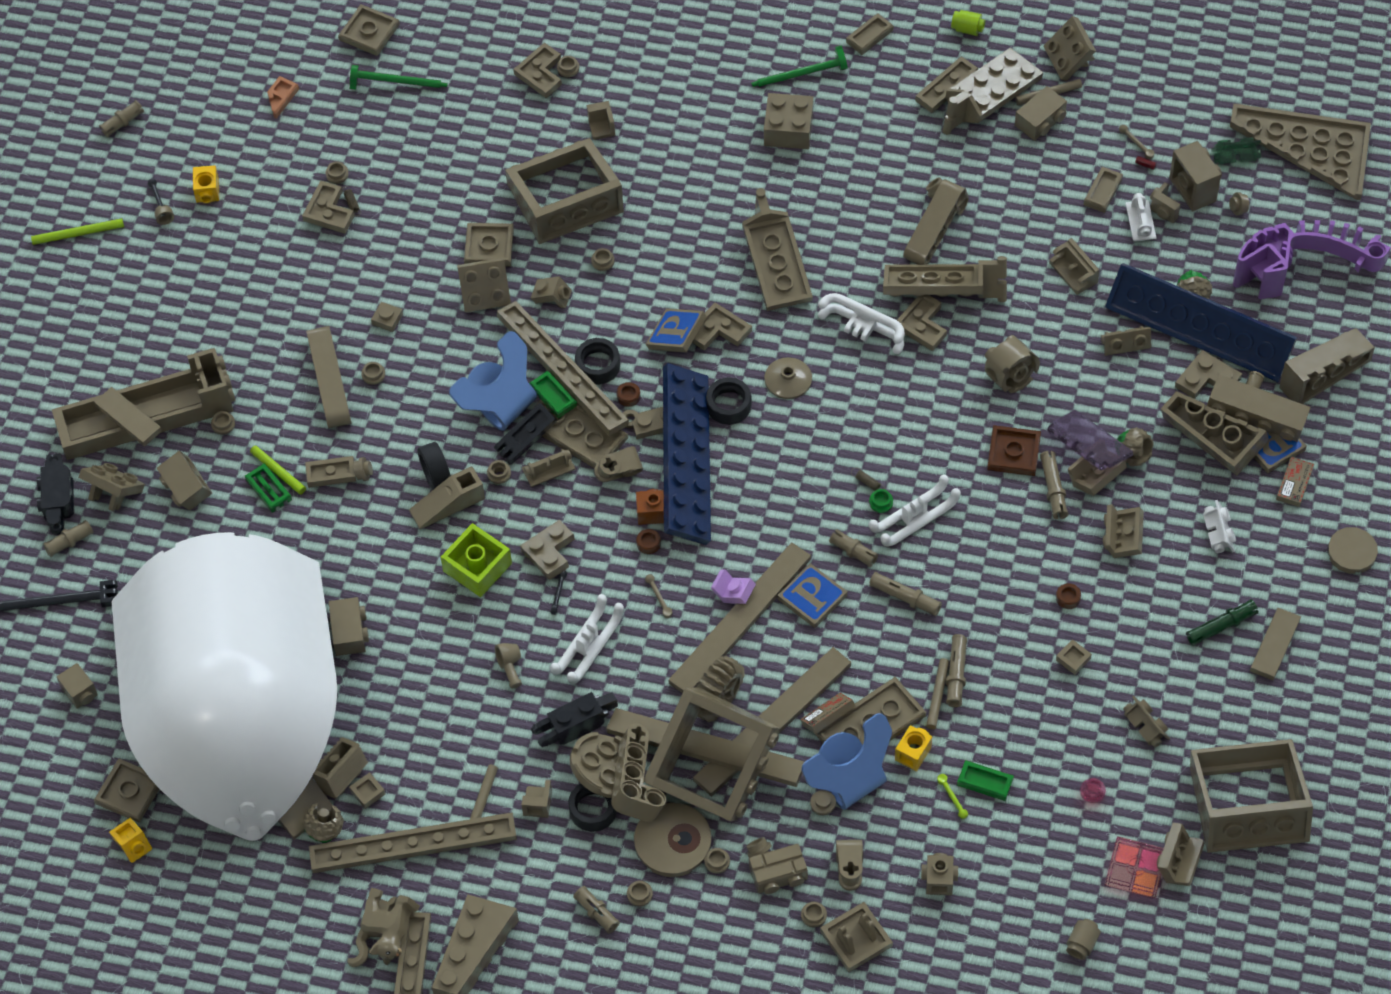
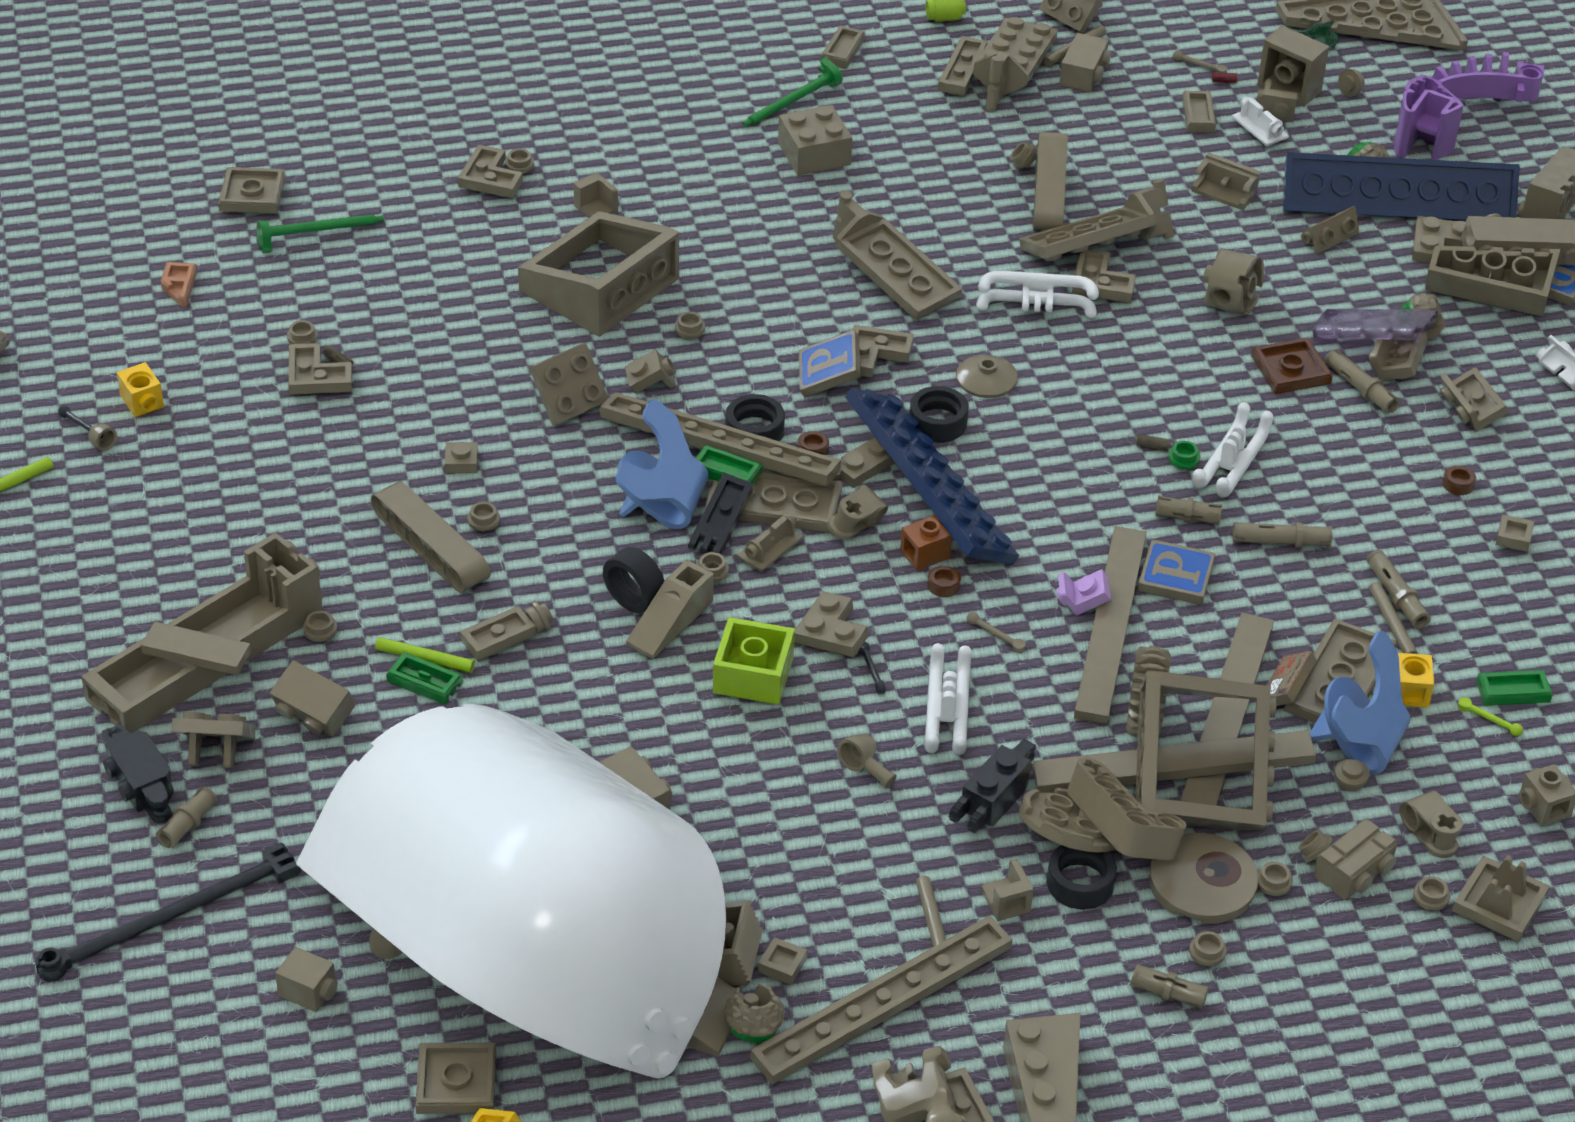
camera: 30 degrees left, 15 degrees down
(489, 242) = (536, 344): dark tan plate -> none

